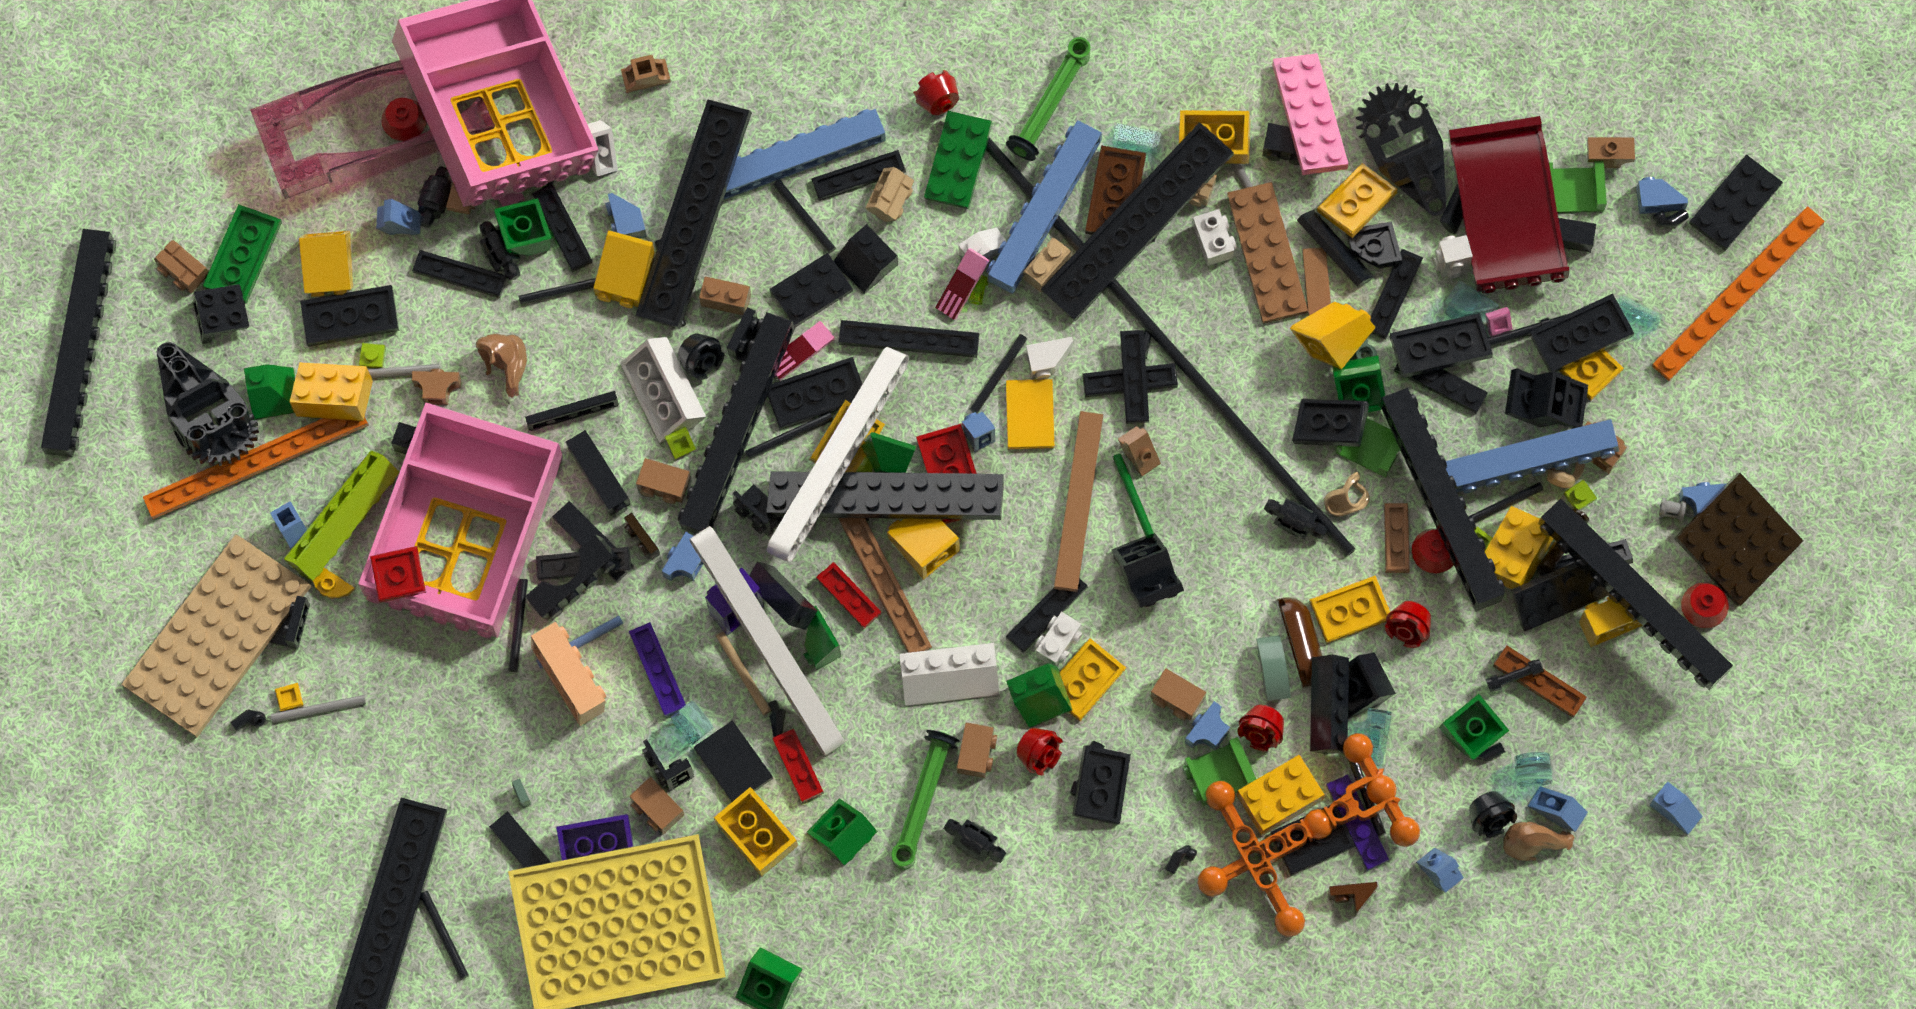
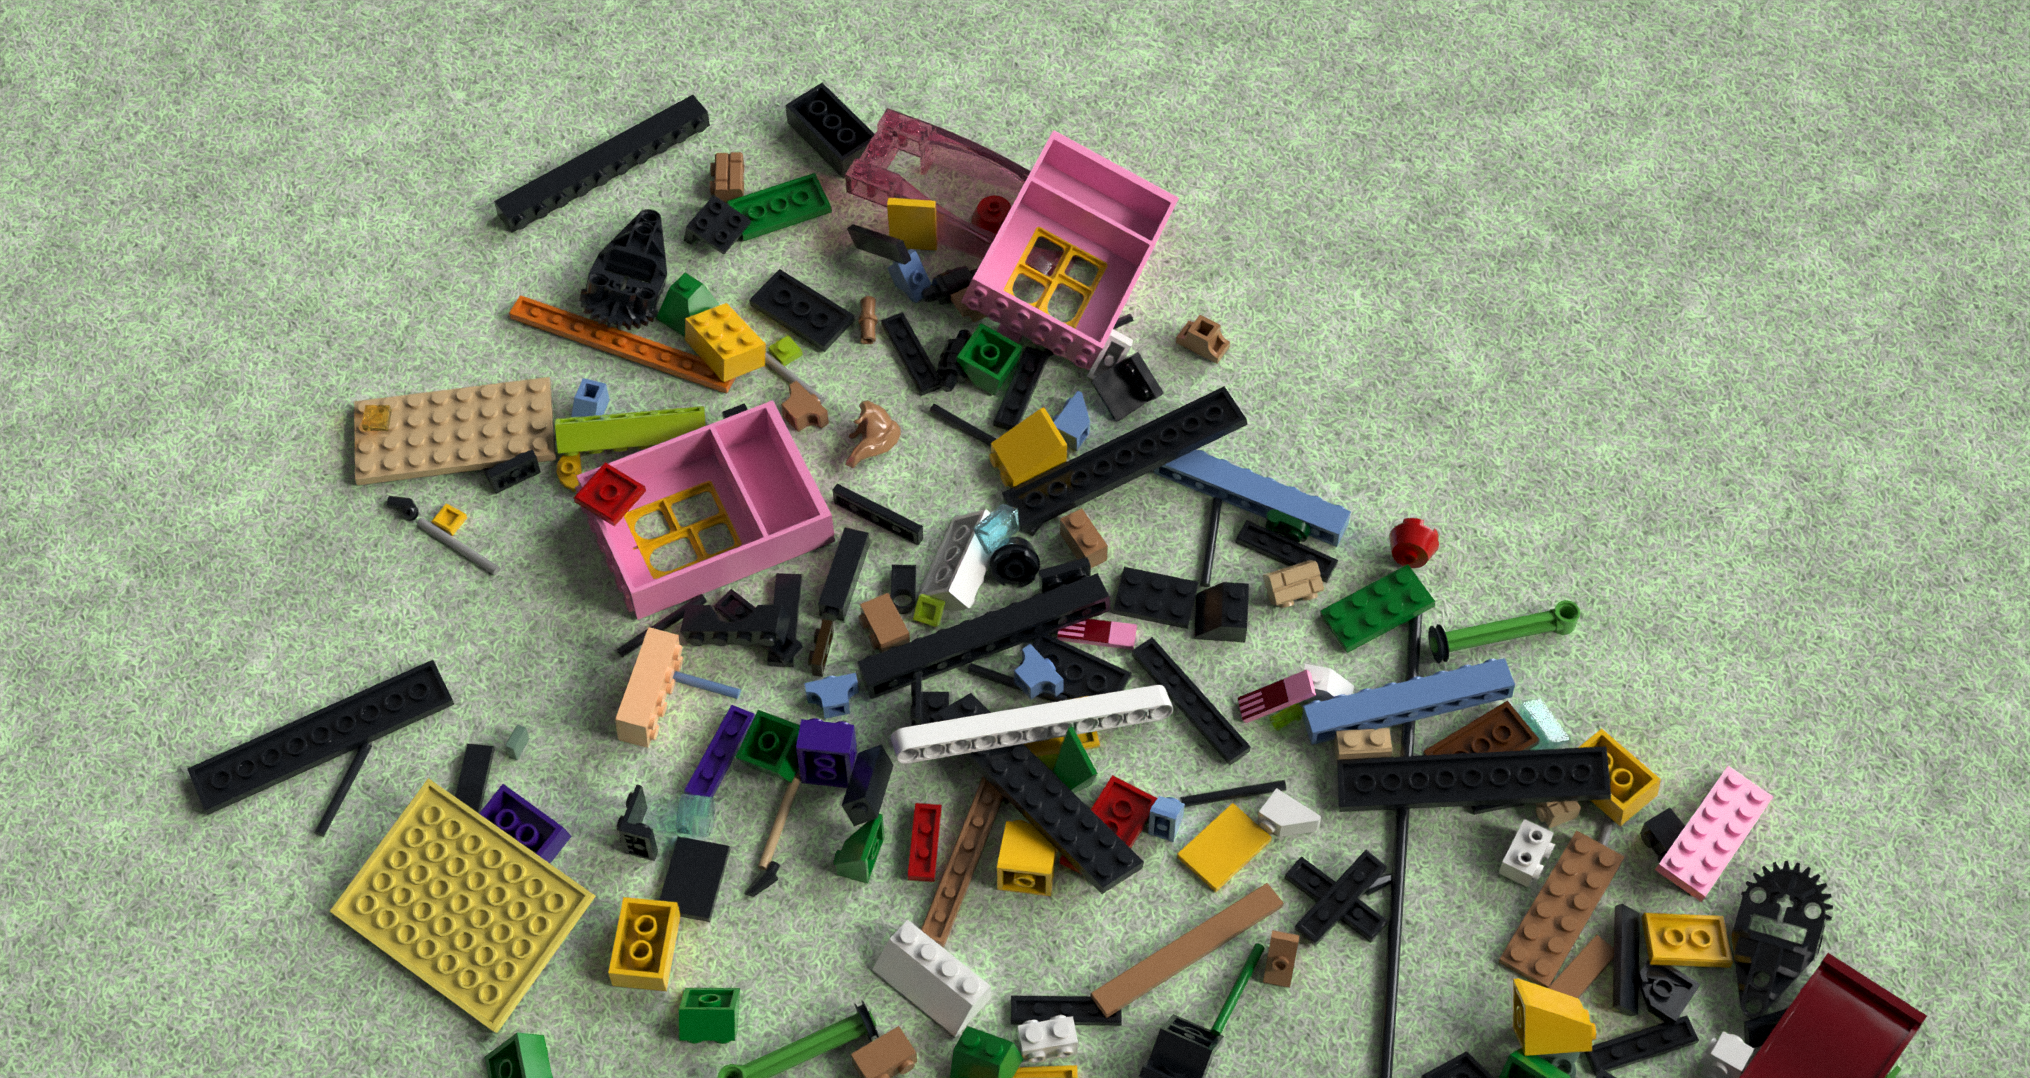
camera: 45 degrees right, 15 degrees down
(160, 679) = (376, 417): none -> clear yellow plate
(214, 159) = (829, 127): none -> black brick
(326, 262) = (827, 259): yellow slope -> none
(356, 217) = (879, 244): none -> black tile
(362, 179) = (913, 222): none -> yellow tile
(403, 279) = (868, 320): none -> medium nougat pin
(635, 158) = (1126, 386): none -> black bracket
(640, 440) = (903, 583): none -> black piece
(656, 806) = (598, 851): medium nougat brick -> none
(665, 343) = (996, 527): none -> clear light blue slope
(691, 630) = (771, 746): none -> green slope
(767, 640) = (810, 801): white beam -> none
(798, 765) = (737, 930): red plate -> none
(799, 417) = (1037, 674): none -> medium blue brick
(848, 155) = (1287, 525): none -> dark green plate

